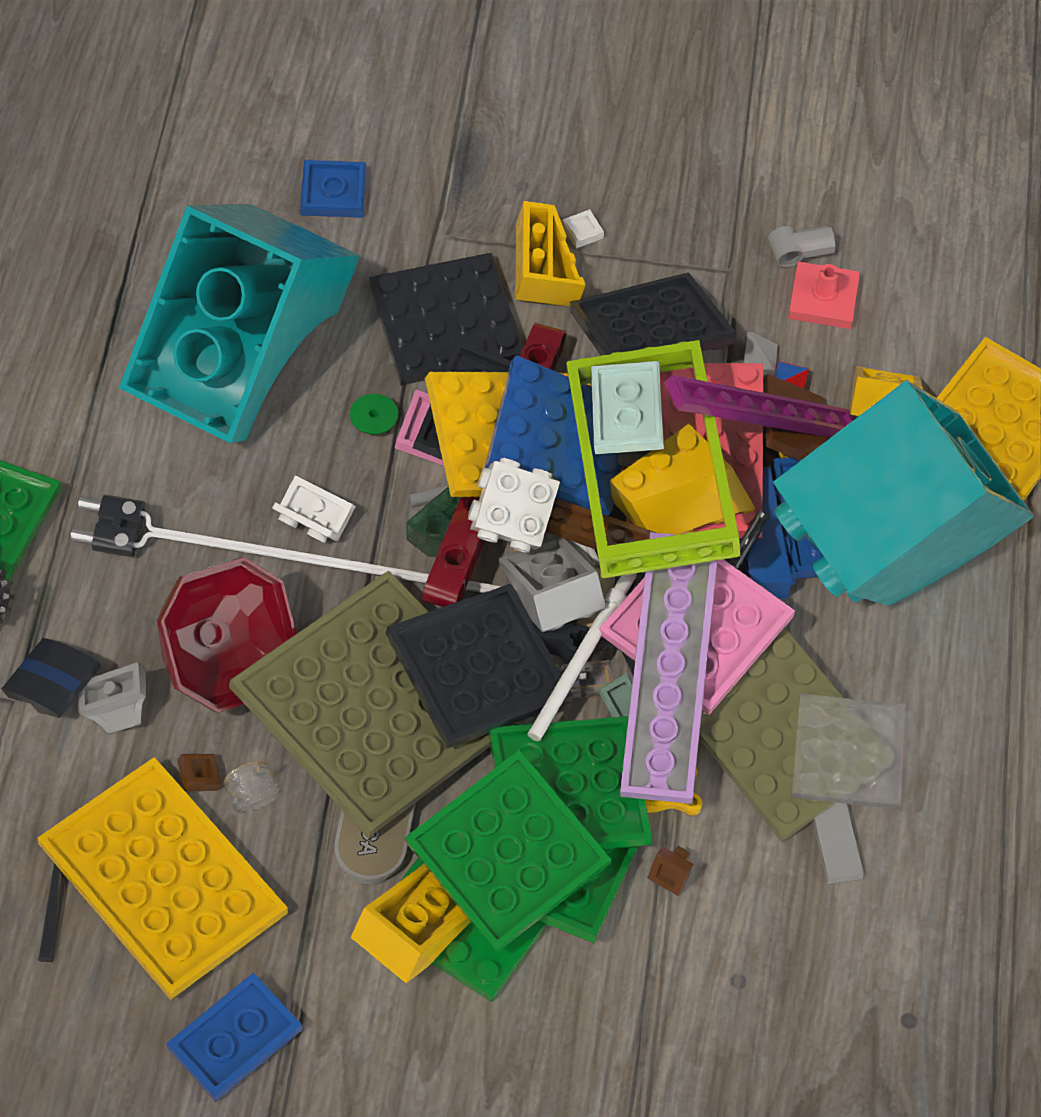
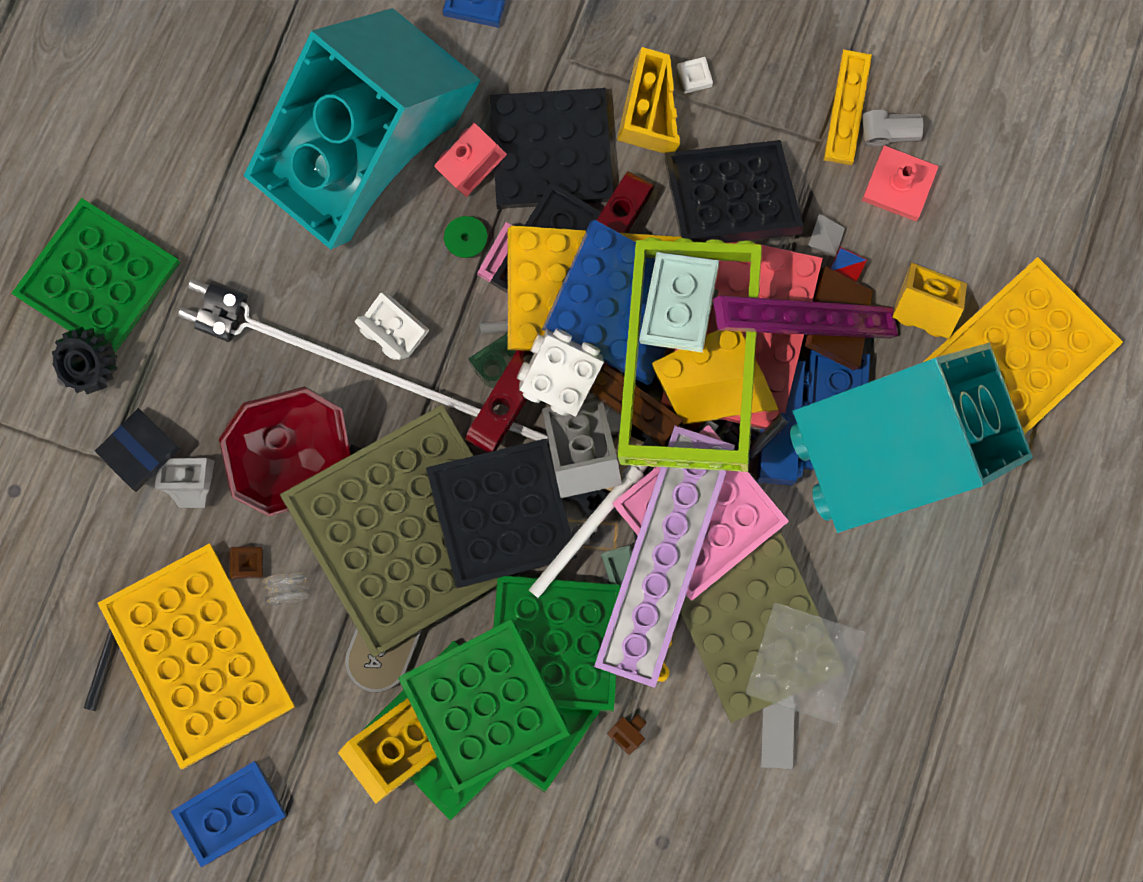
camera: 15 degrees right, 20 degrees up
(363, 336) = (469, 159): none -> coral brick
(750, 235) = (847, 107): none -> yellow tile

